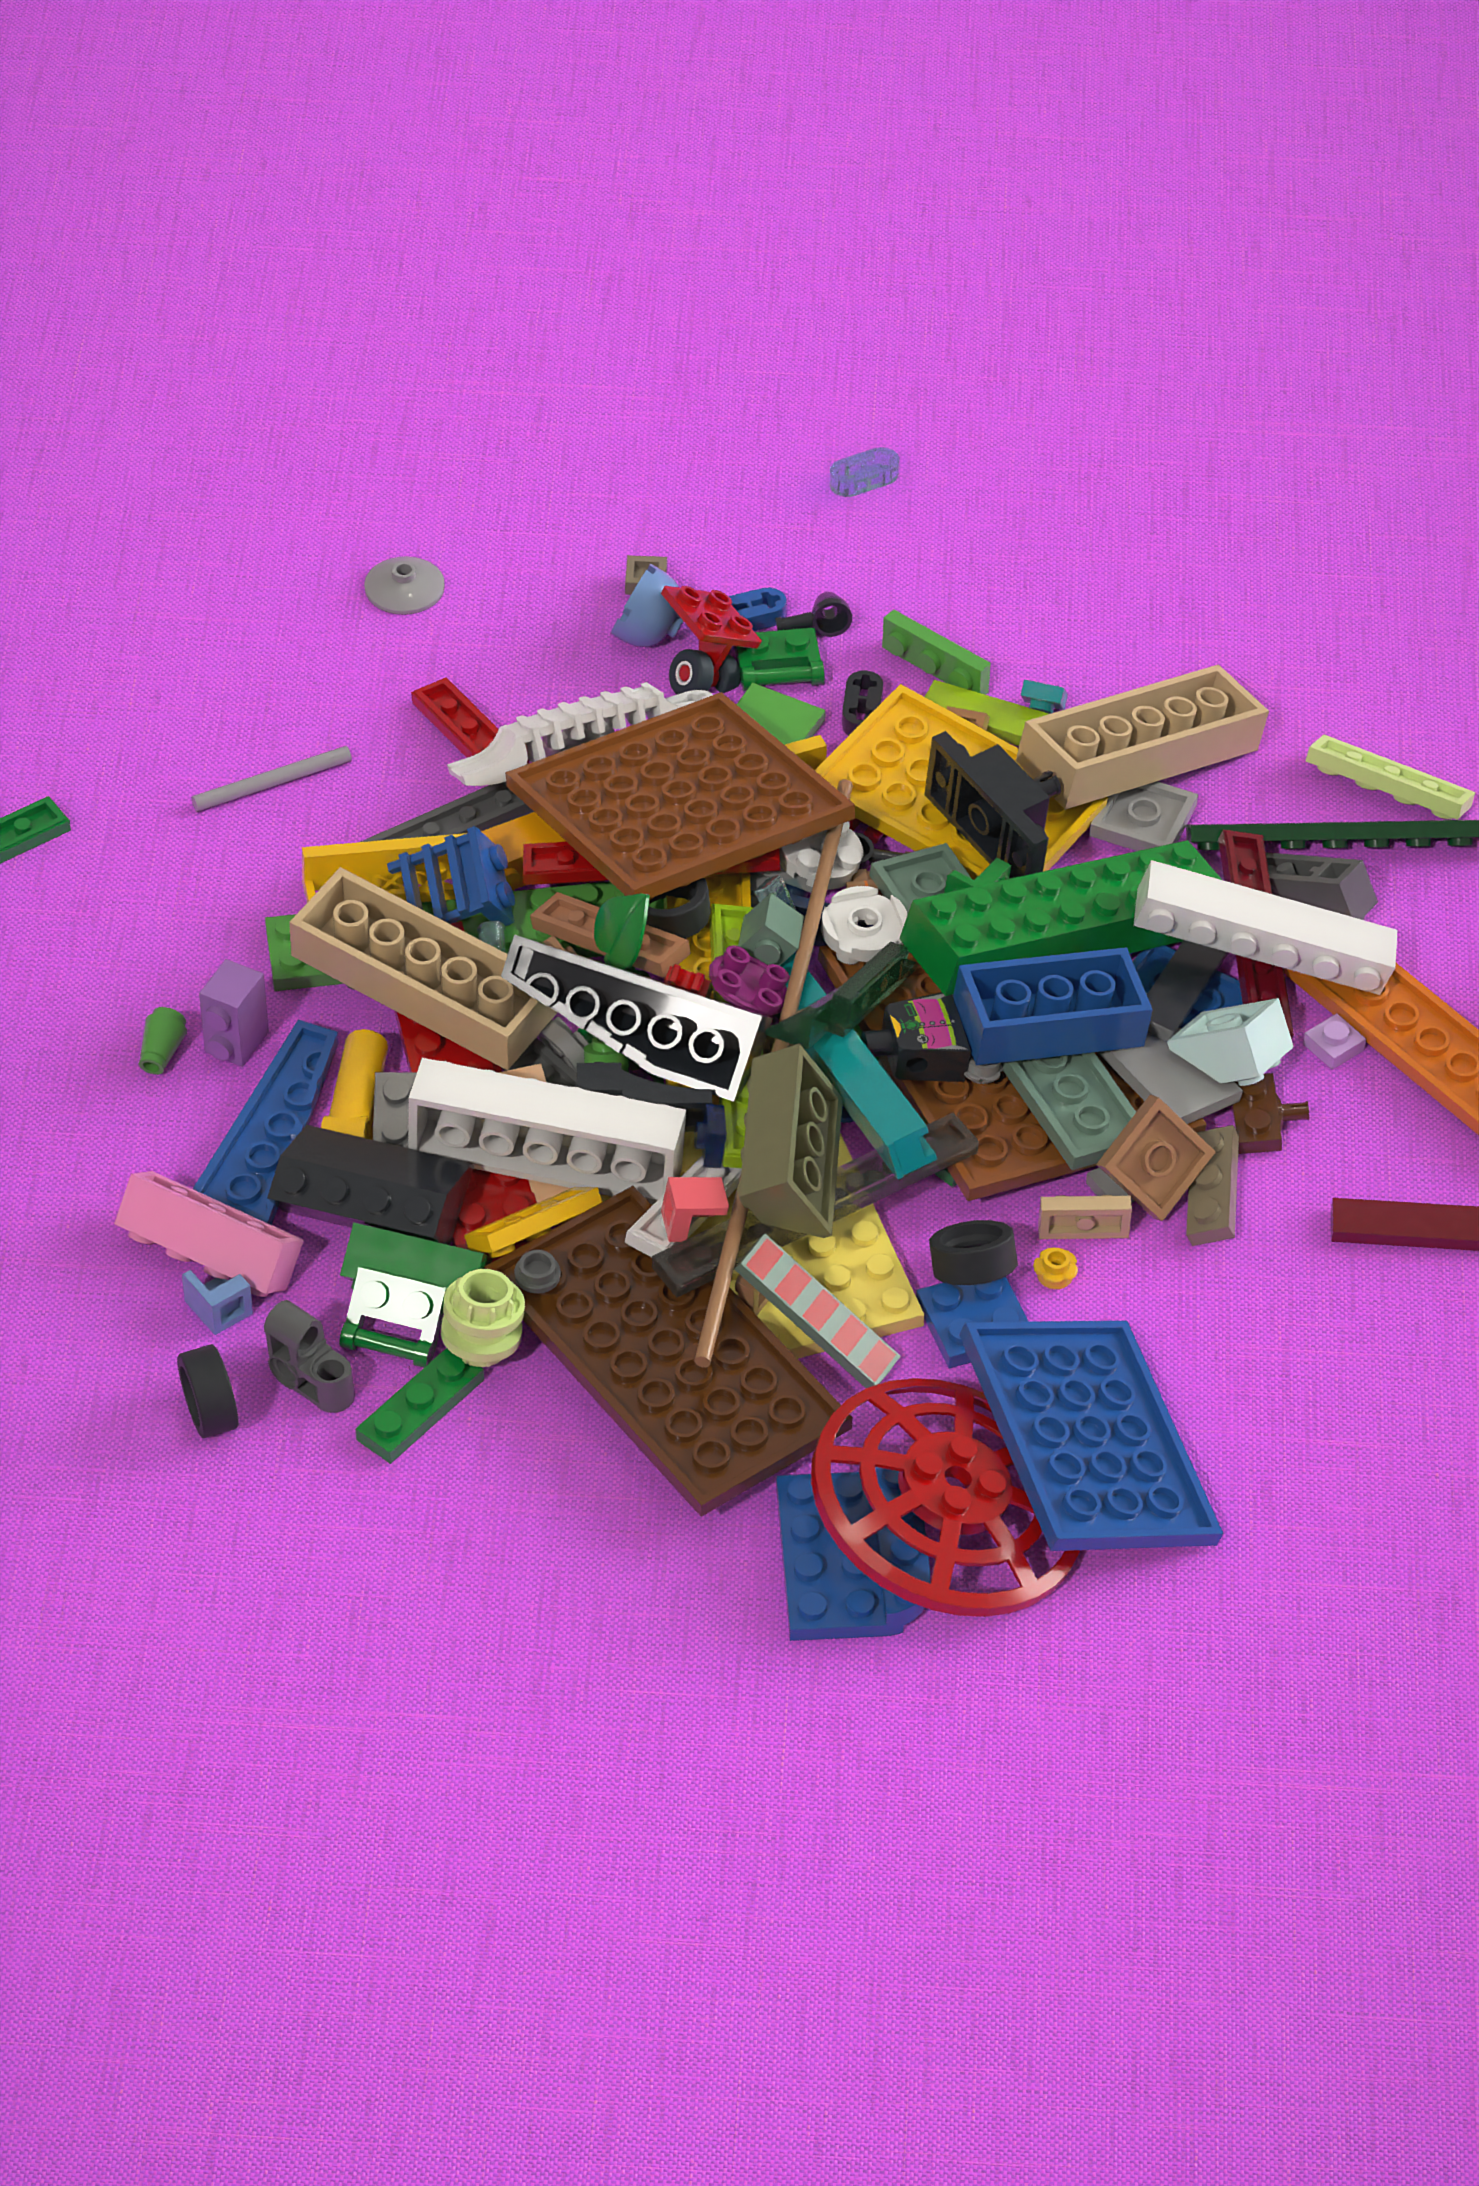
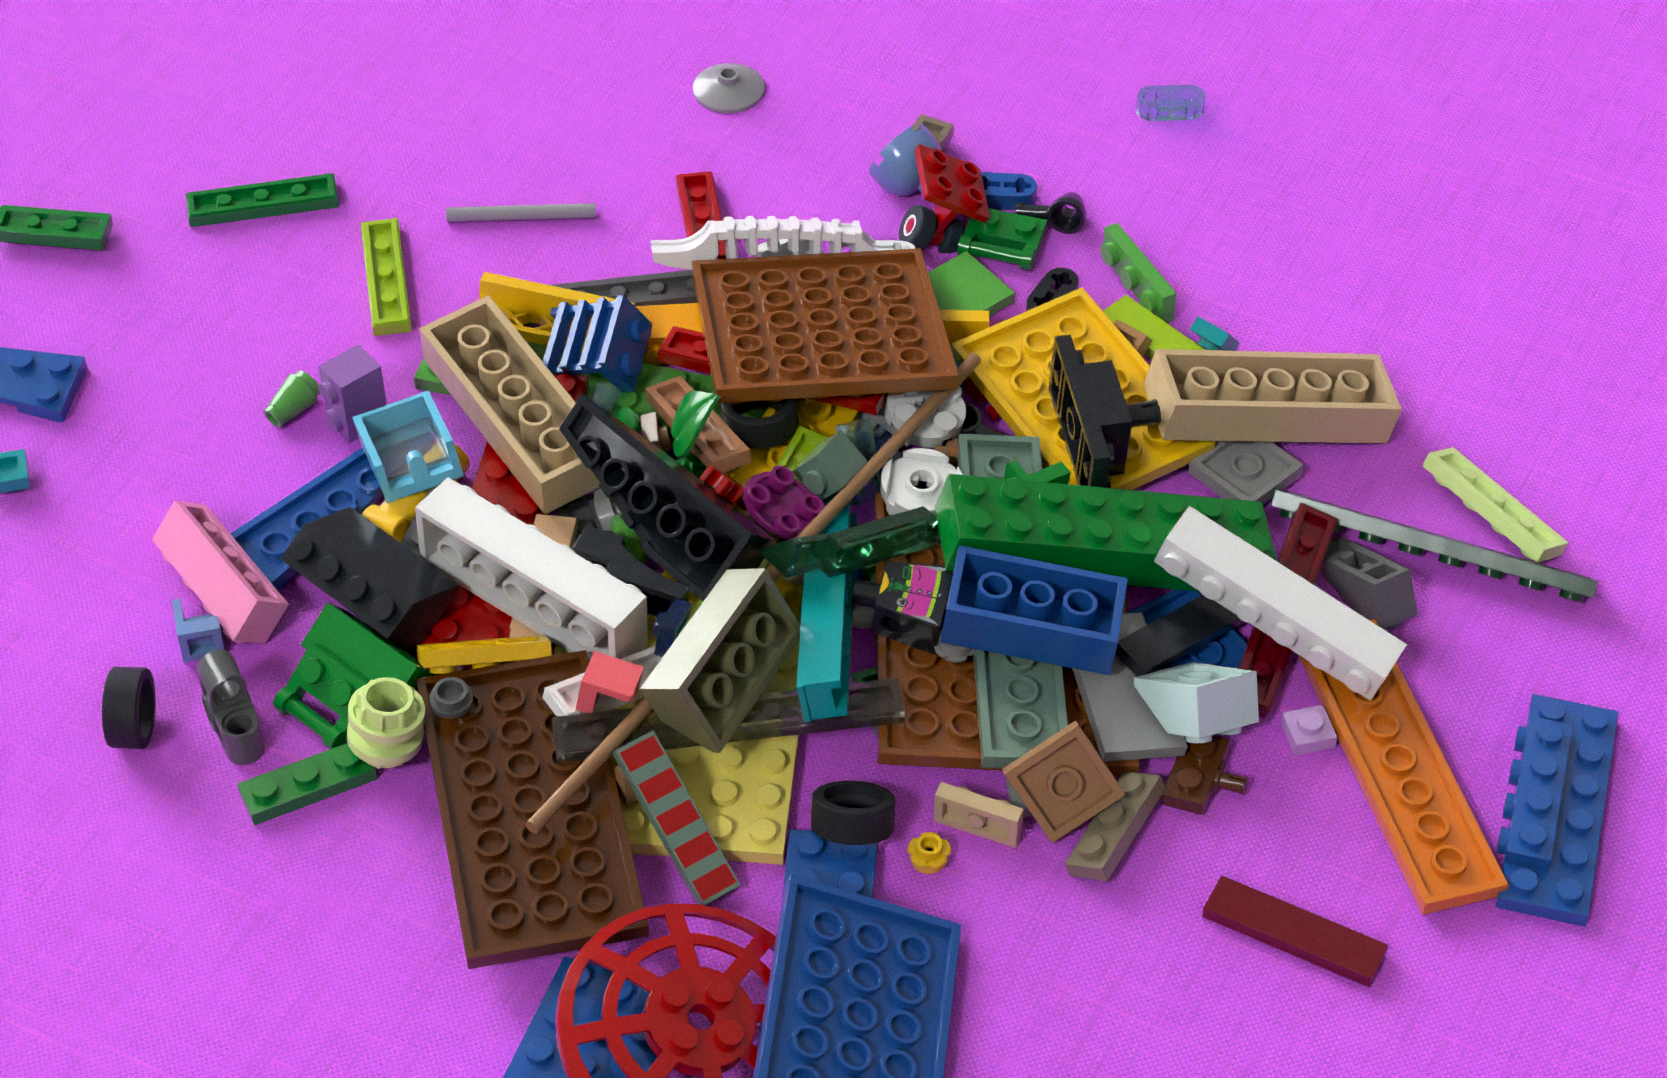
camera: 25 degrees right, 0 degrees up
(172, 887) = (386, 277): none -> lime tile
(333, 1045) = (408, 446): none -> medium azure window

